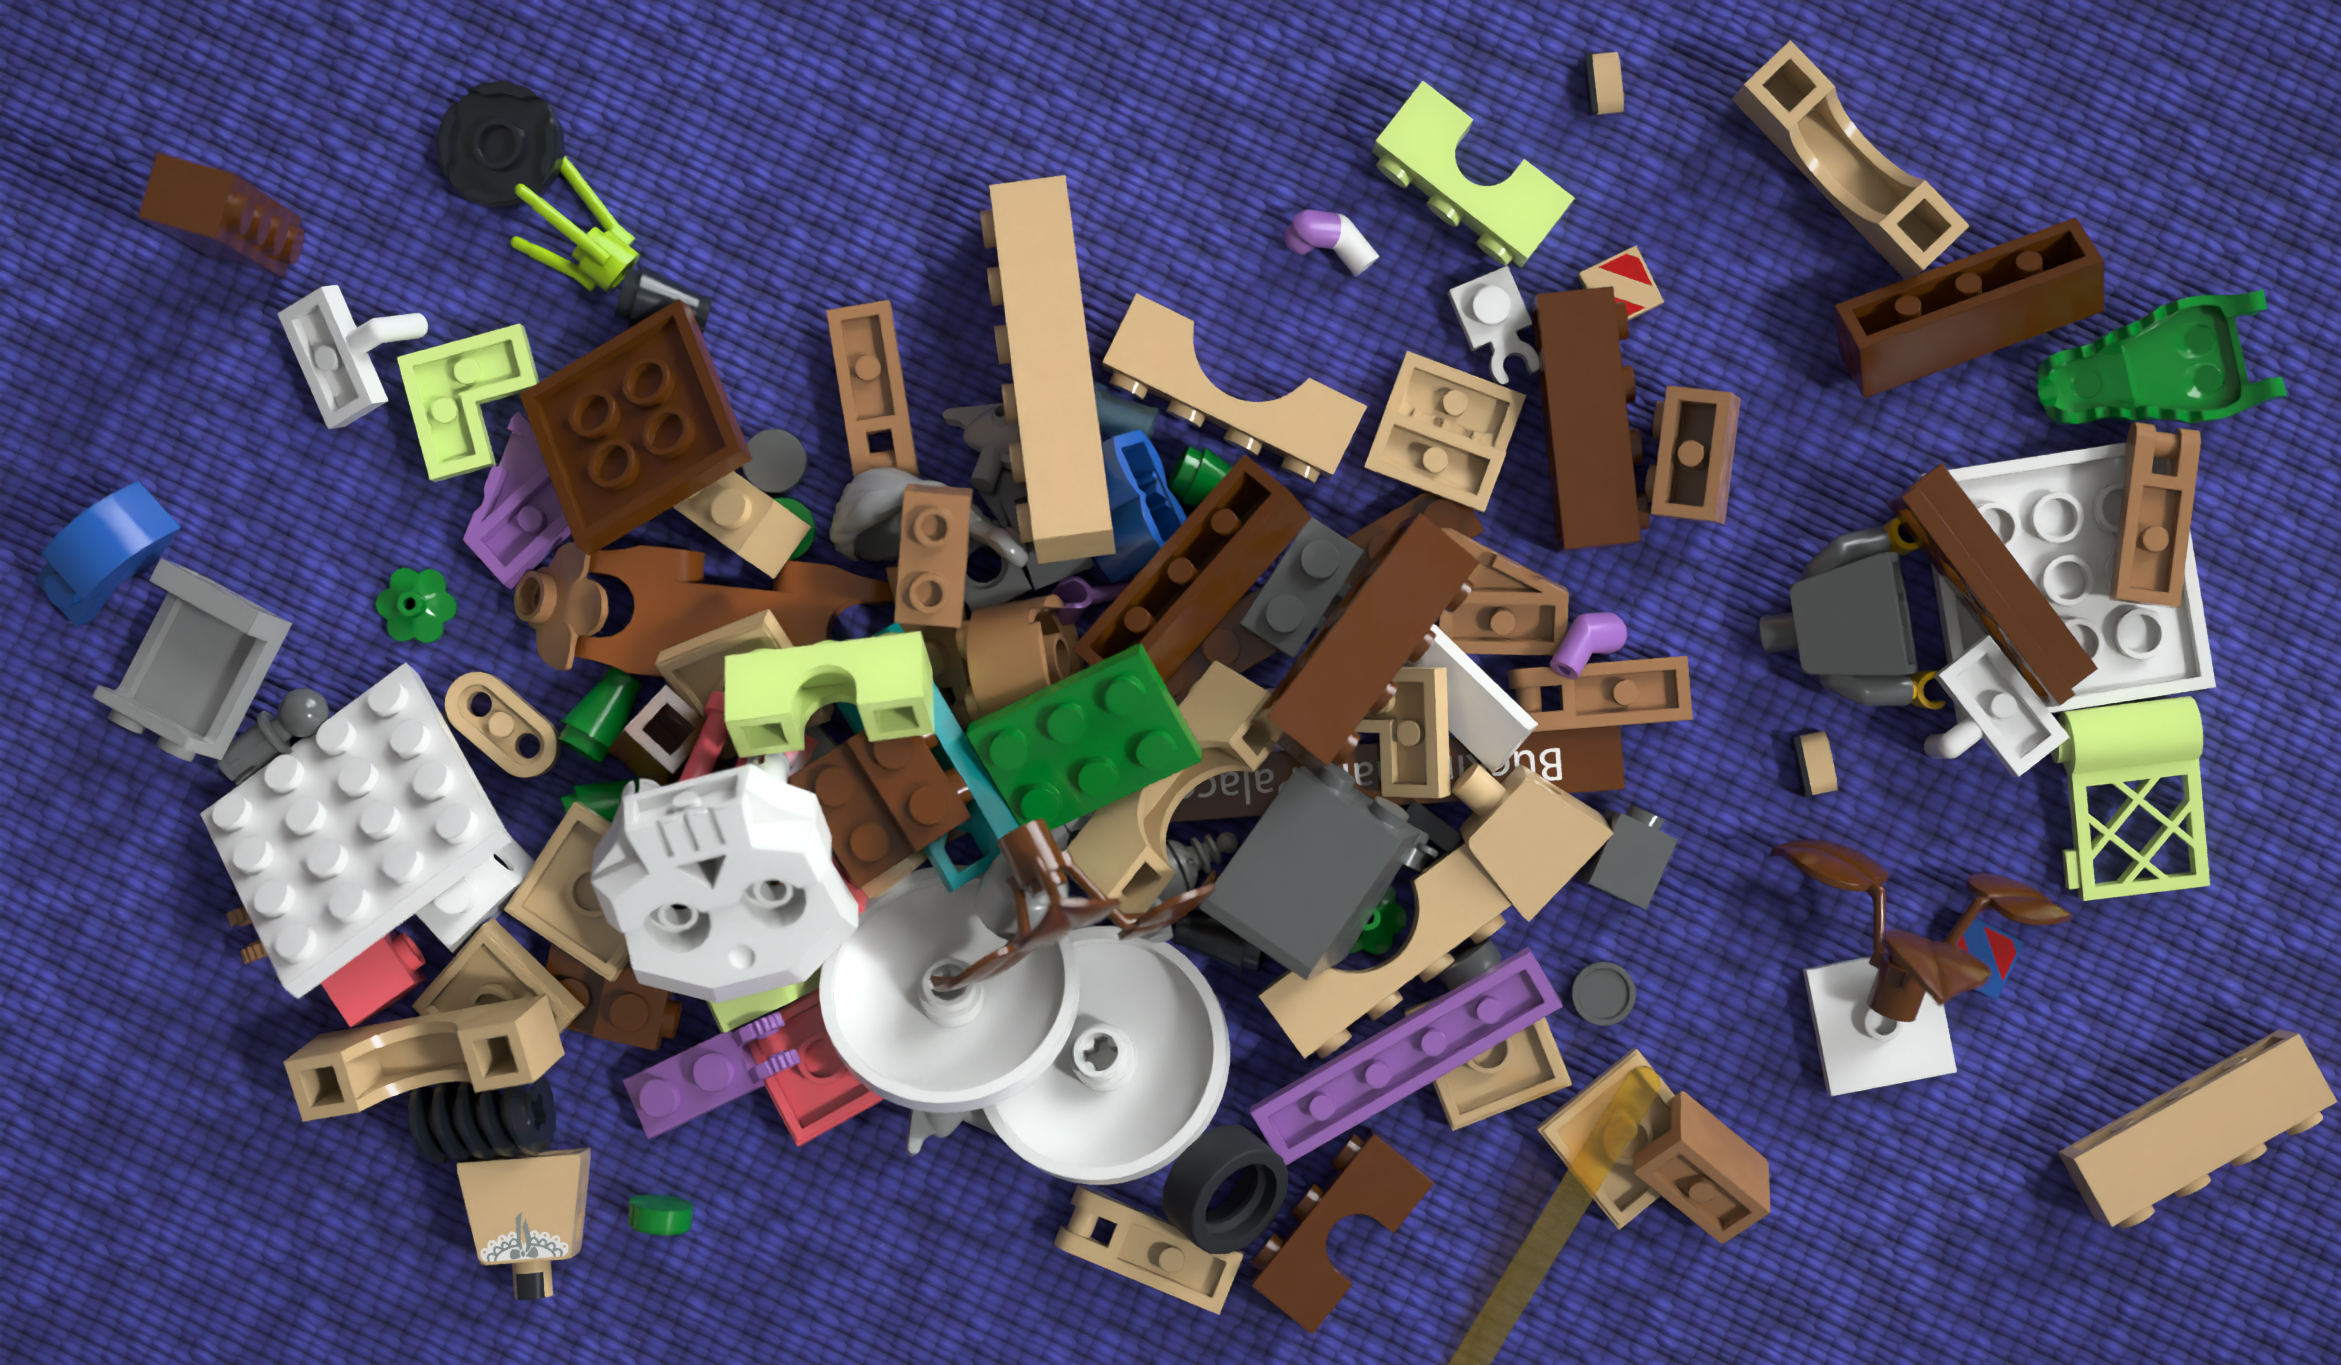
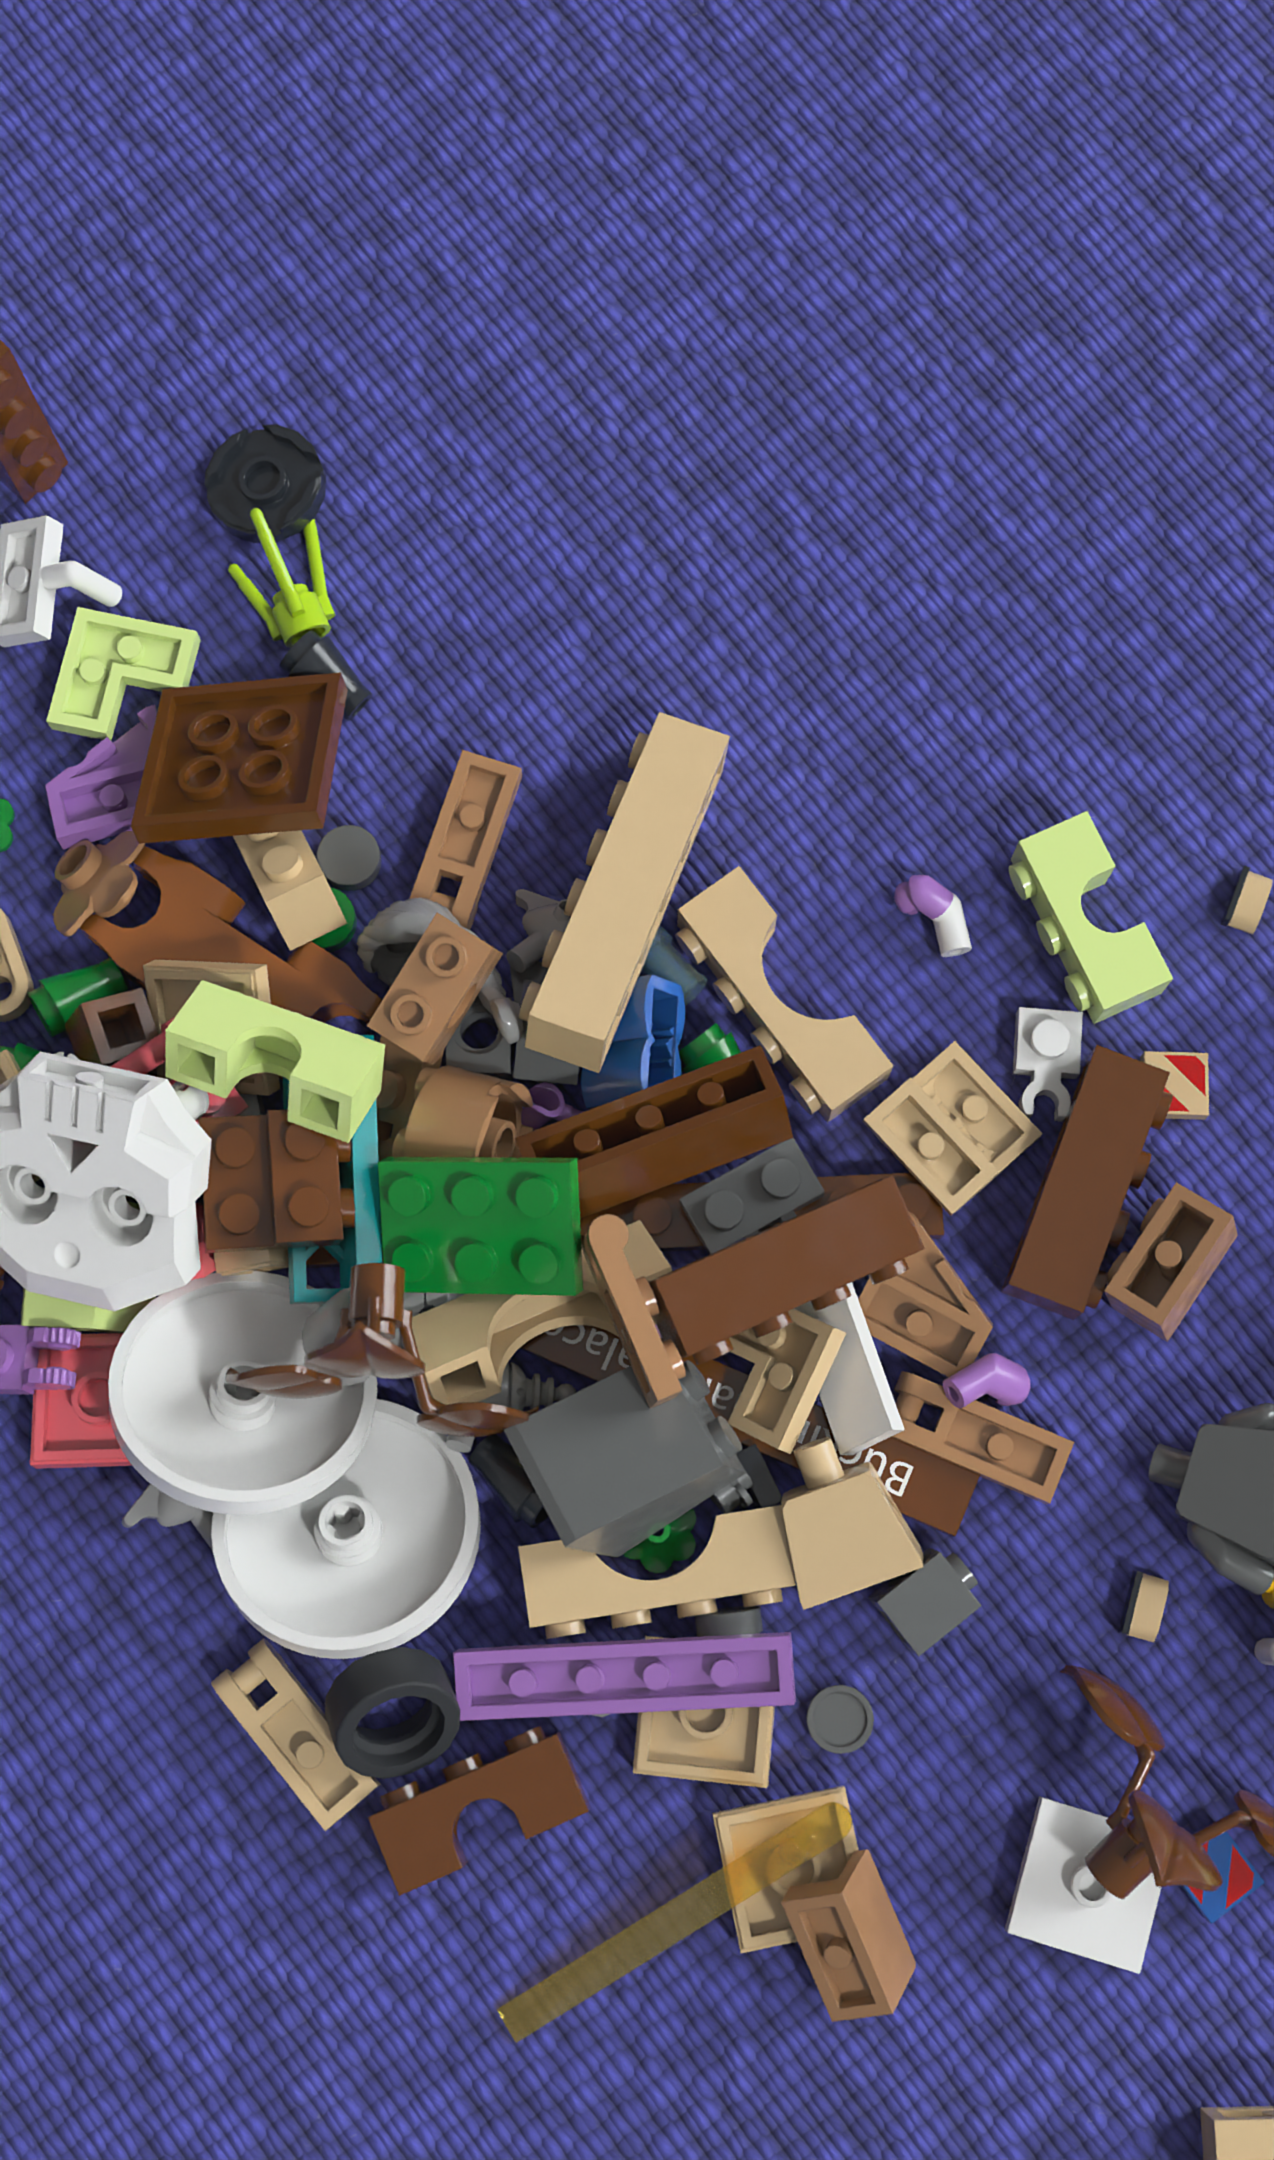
camera: 30 degrees right, 10 degrees down
(1256, 749) = (631, 1311): none -> medium nougat plate

